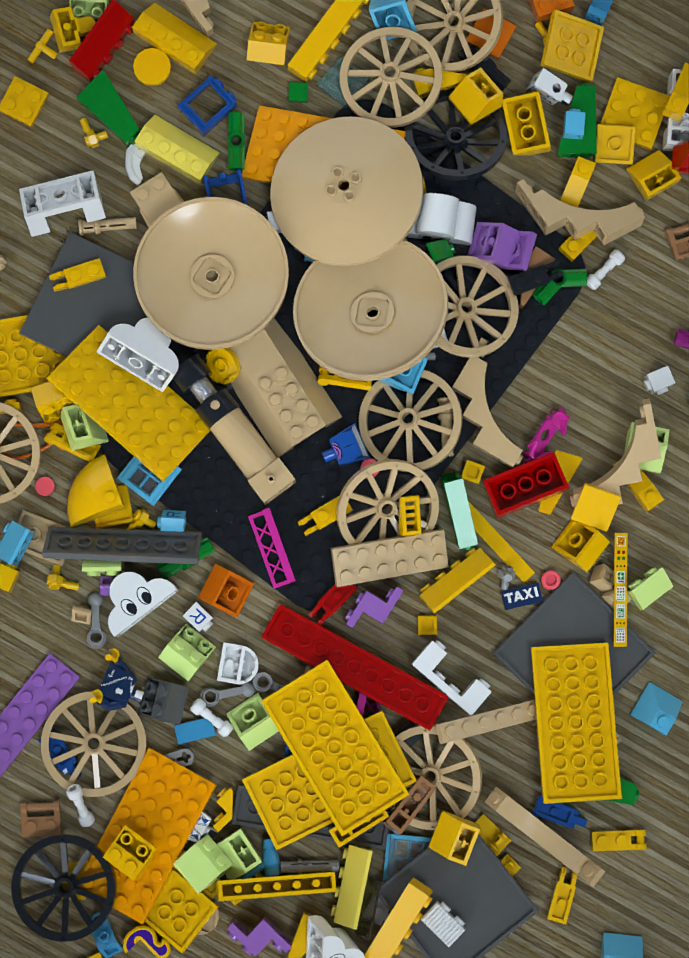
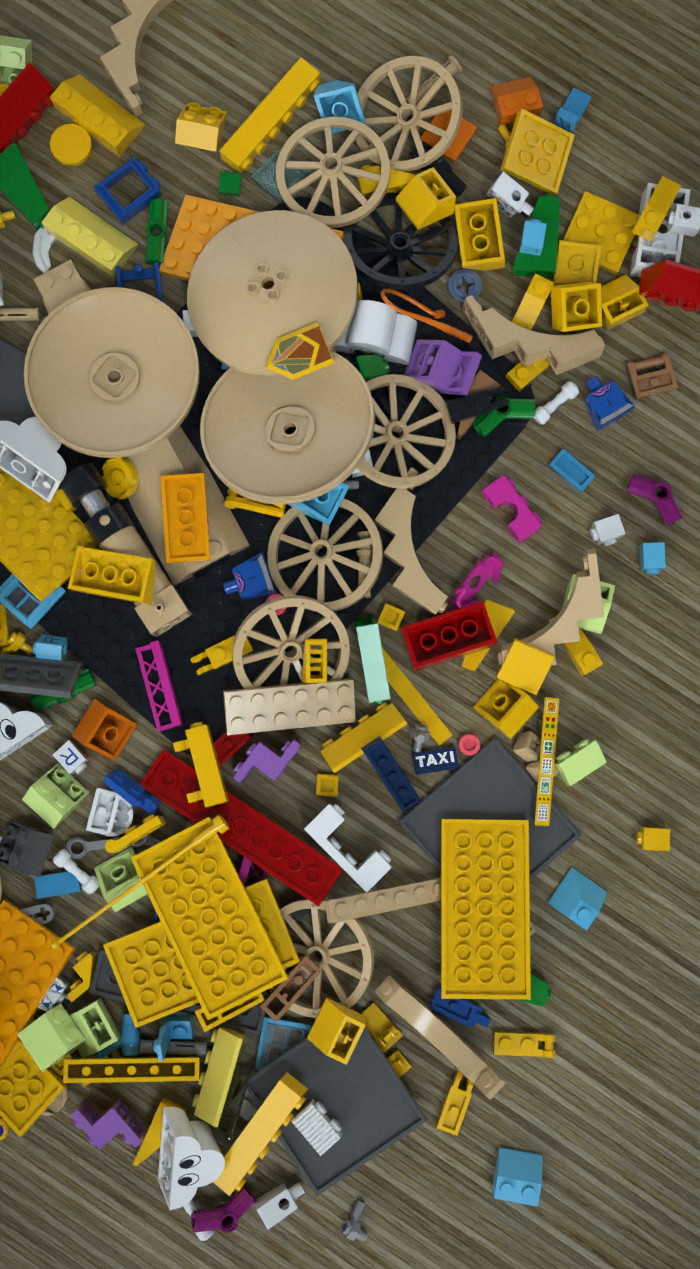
camera: 10 degrees right, 0 degrees up
(176, 389) = (65, 501): none -> yellow tile
(226, 453) = (113, 575): none -> yellow slope
(255, 643) = (131, 791): none -> blue hinge
(262, 680) = (134, 834): none -> yellow plate
(286, 397) = (185, 518): none -> light orange plate
(308, 849) = (173, 1028): none -> dark azure bracket
(320, 613) = (206, 765): none -> yellow brick
(337, 666) = (219, 824): none -> yellow piece
(377, 245) = (300, 353): none -> tile
(484, 610) = (391, 774): none -> dark blue tile
(494, 198) = (437, 314): none -> orange piece
(519, 162) = (469, 277): none -> sand blue gear
(563, 354) = (503, 493): none -> dark pink arch
(617, 183) = (576, 306): none -> yellow brick
(623, 329) = (571, 470): none -> dark azure tile
(650, 267) = (606, 403): none -> blue torso

